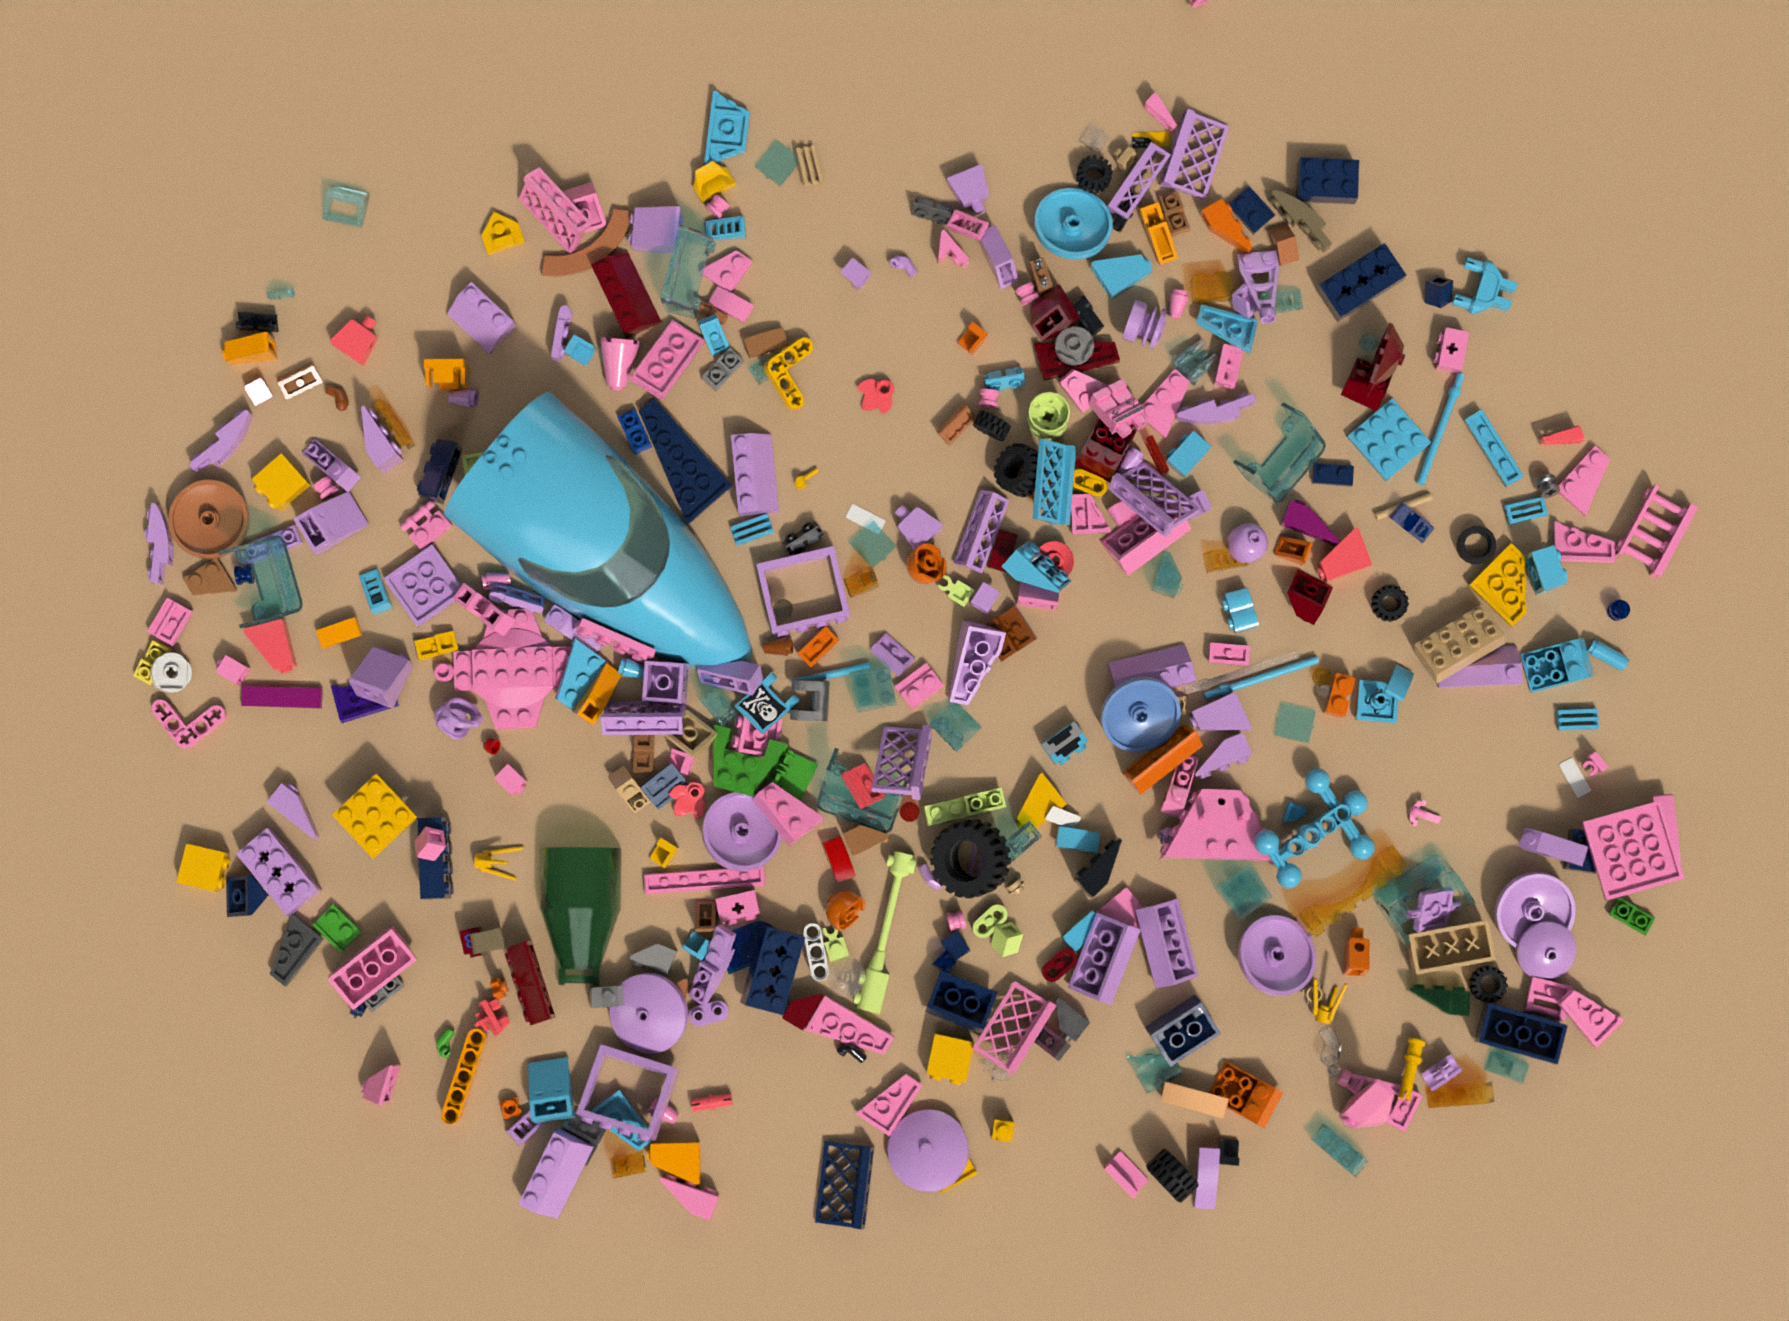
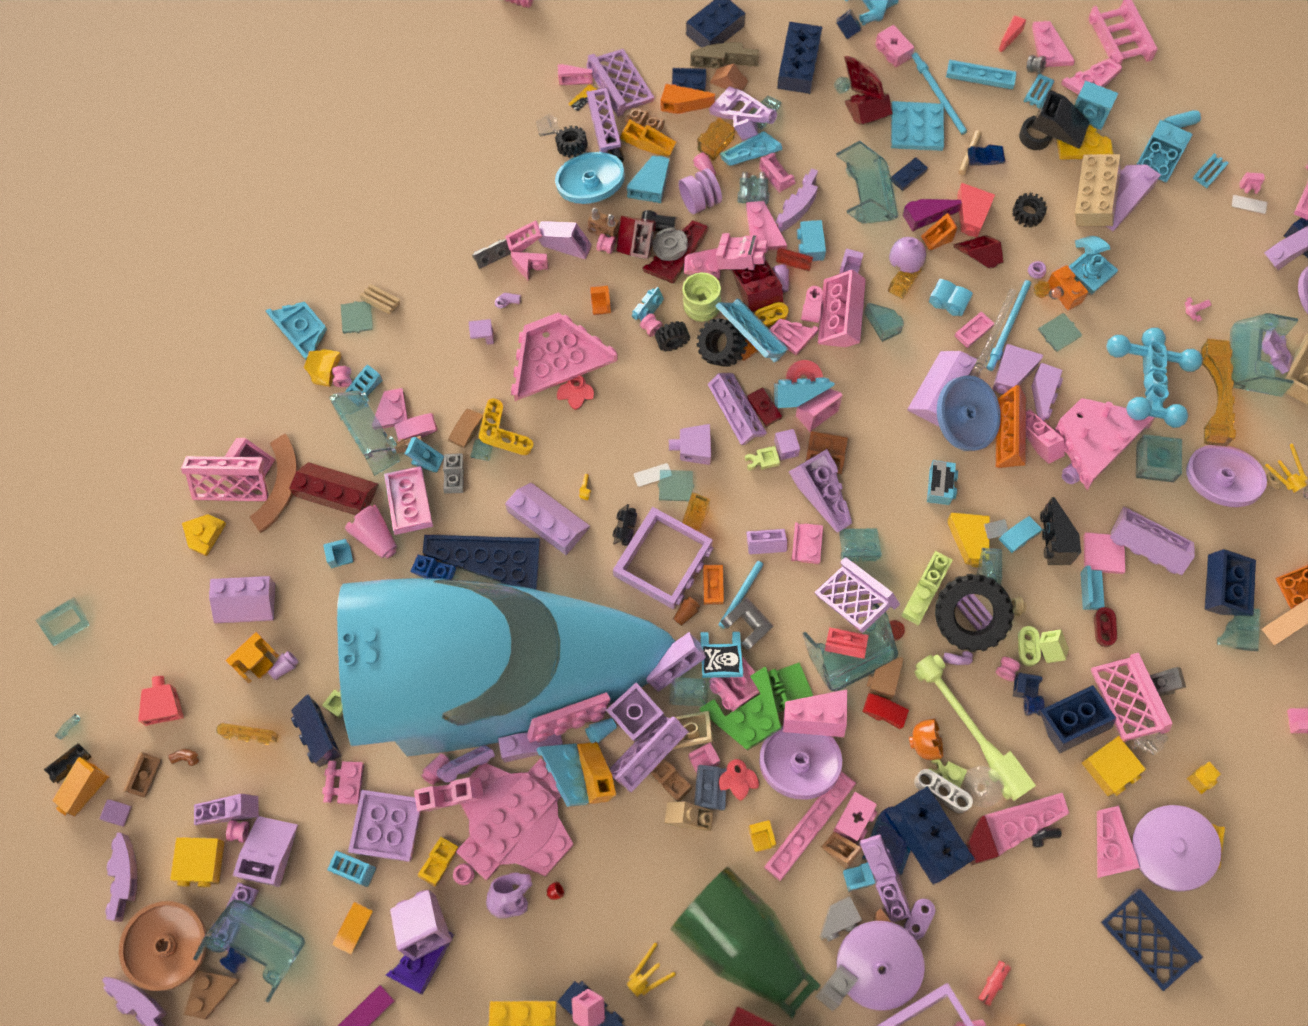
camera: 50 degrees left, 15 degrees down
(274, 644) = (308, 989): coral slope -> none
(380, 449) = (256, 758): lavender slope -> none
(511, 780) = (596, 901): bright pink brick -> none
(561, 333) = (313, 554): lavender hinge -> none
(655, 228) = (314, 426): lavender slope -> none
(752, 529) = (590, 540): medium azure tile -> none
(783, 609) = (664, 579): clear smoke tile -> none
(873, 688) = (779, 575): clear light blue slope -> none
(886, 354) = (557, 358): none -> bright pink piece
(926, 564) = (726, 460): orange cylinder -> none
(956, 424) = (647, 359): nougat plate -> none
(970, 188) = (501, 217): lavender torso -> none
(1070, 1021) = (1156, 655): flat silver slope -> none
(1104, 958) = (1128, 591): lavender slope -> none
(1125, 159) = (580, 117): tan tile -> none
(1144, 505) = (831, 284): lavender fence -> none
(1293, 812) = (1124, 383): dark azure tile -> none
(1342, 657) = (1037, 265): none -> lavender plate
(1356, 962) = (1269, 425): orange torso -> none
(1498, 558) = (1061, 119): none -> black slope
(1620, 607) = (1156, 92): clear blue wheel -> none

